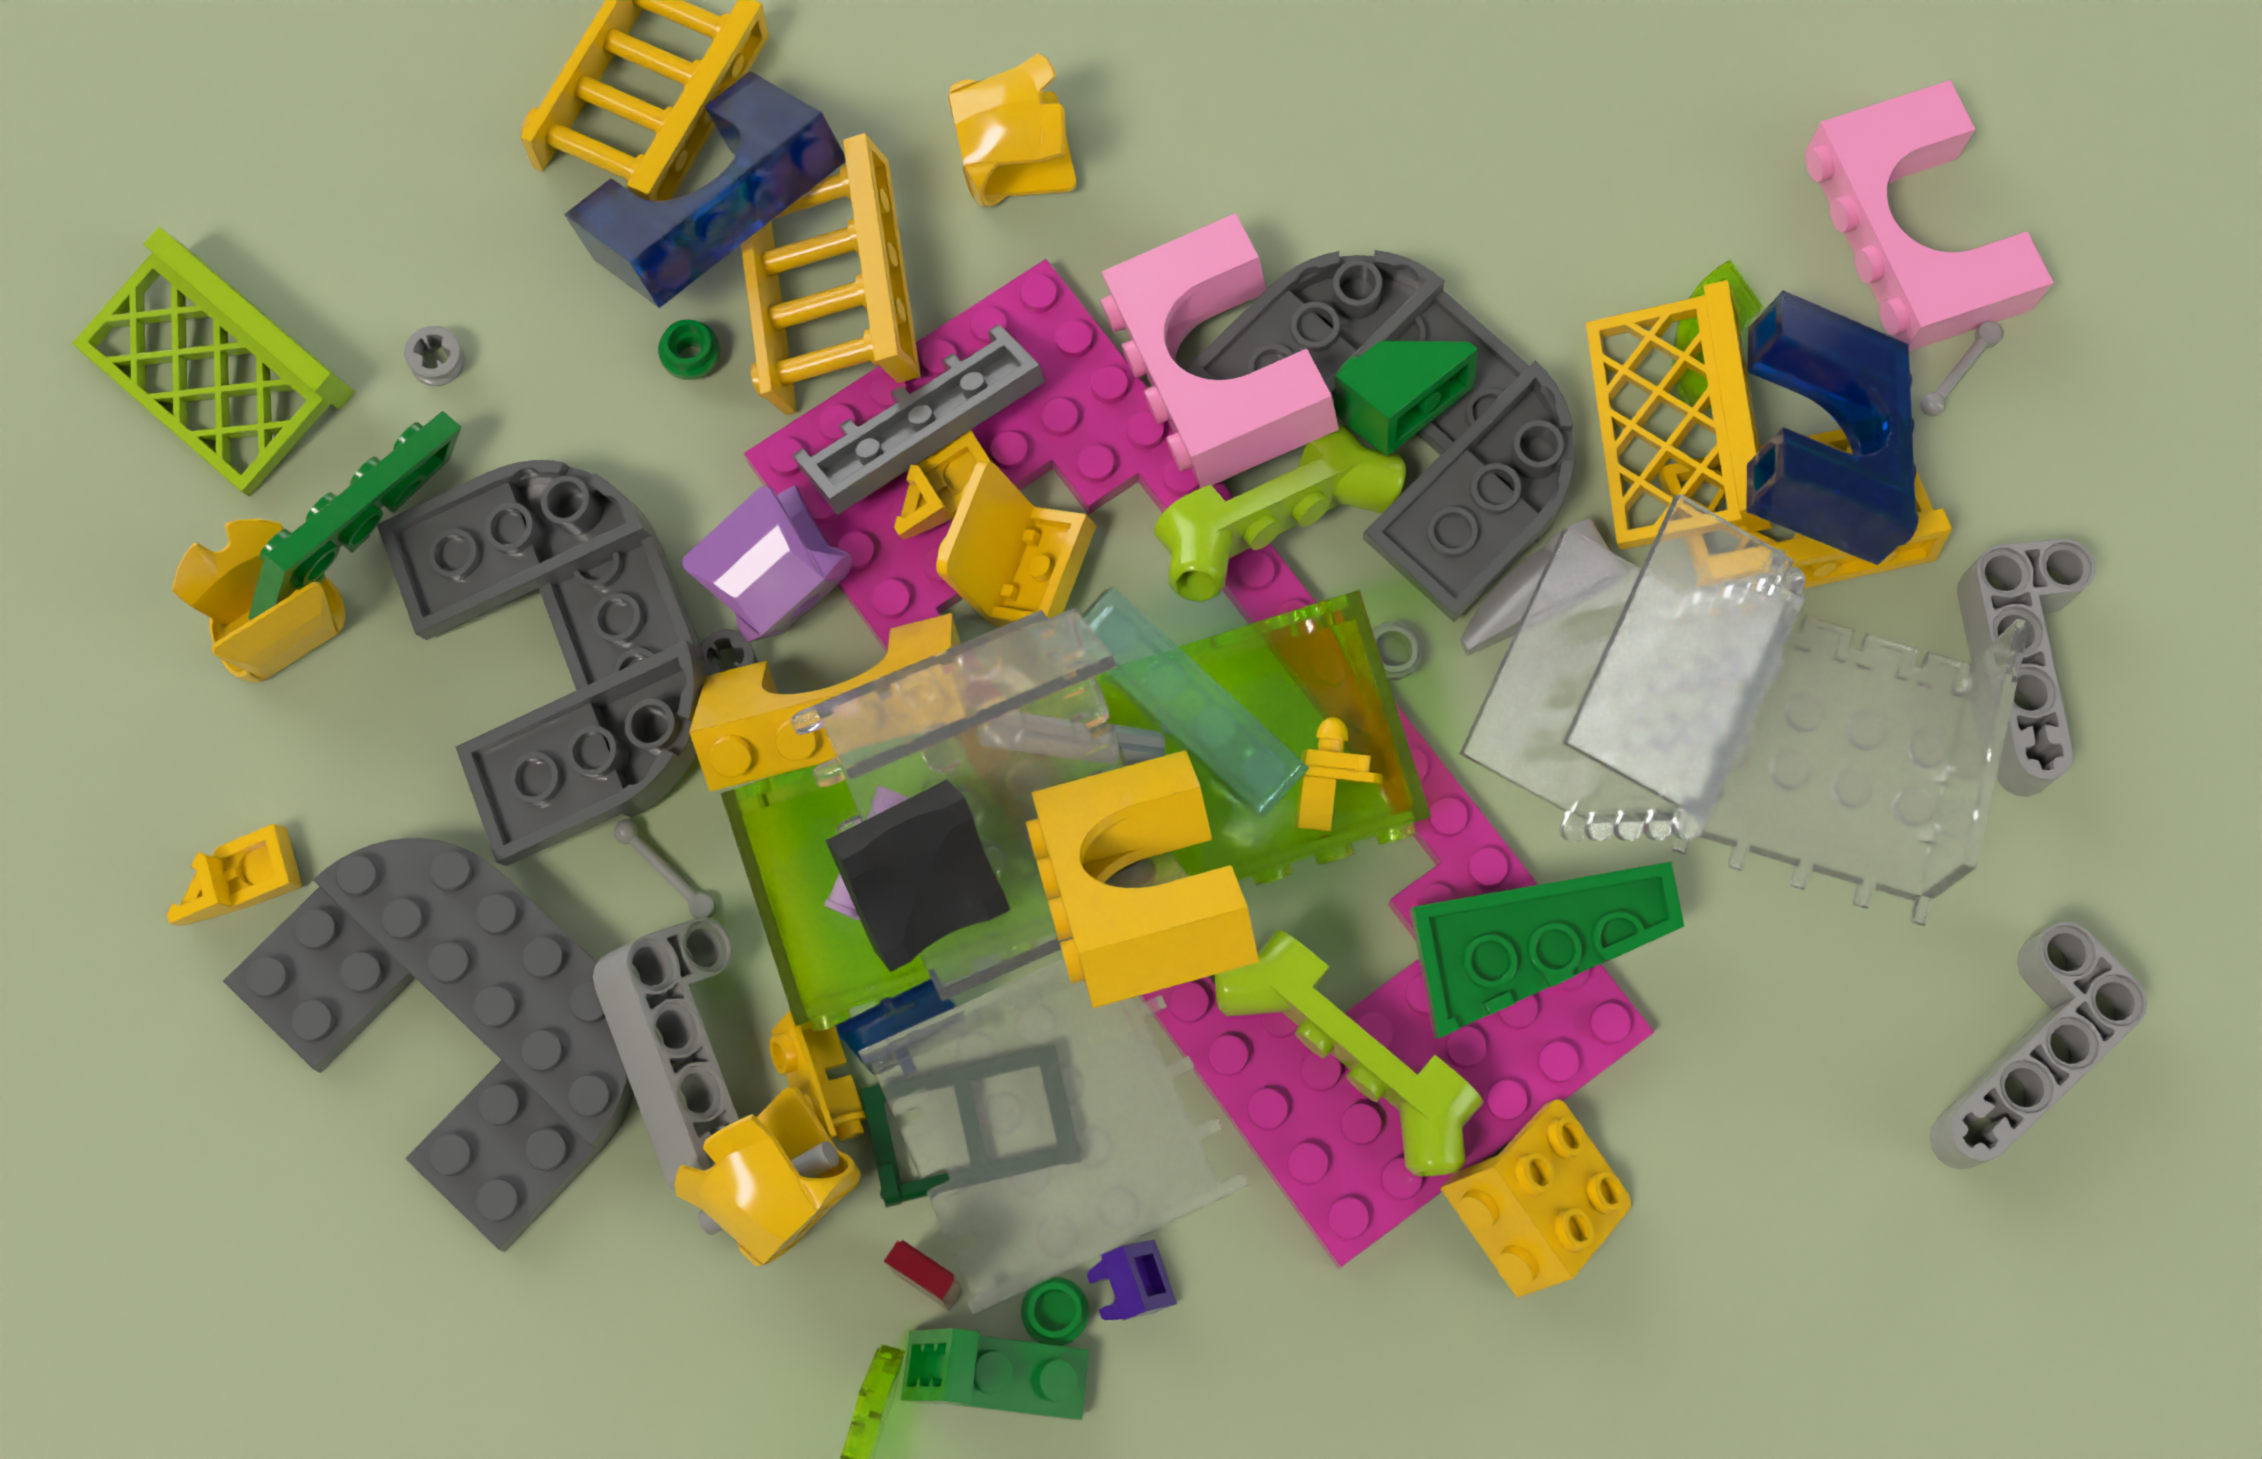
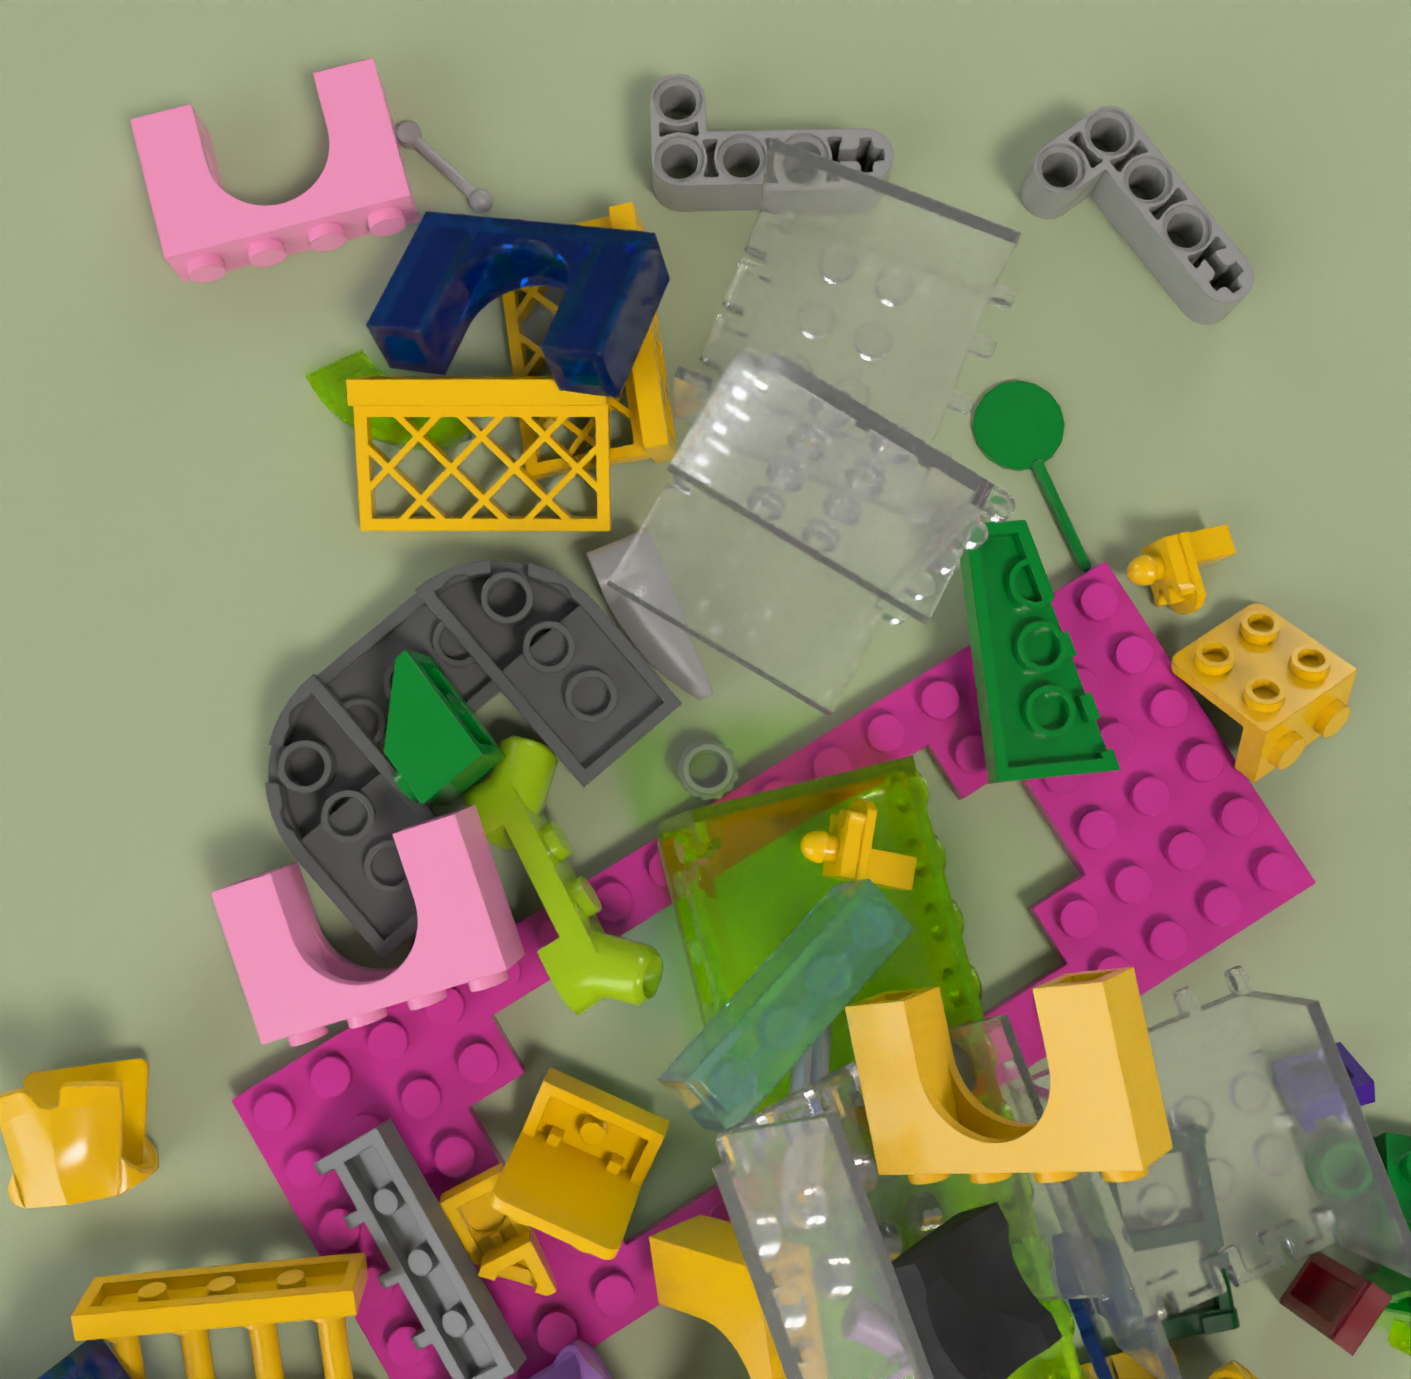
camera: 90 degrees left, 10 degrees up
(1430, 1104) = (1182, 785): lime plate -> none
(1667, 1101) = (1173, 565): none -> yellow piece
(1780, 945) = (1020, 431): none -> green piece

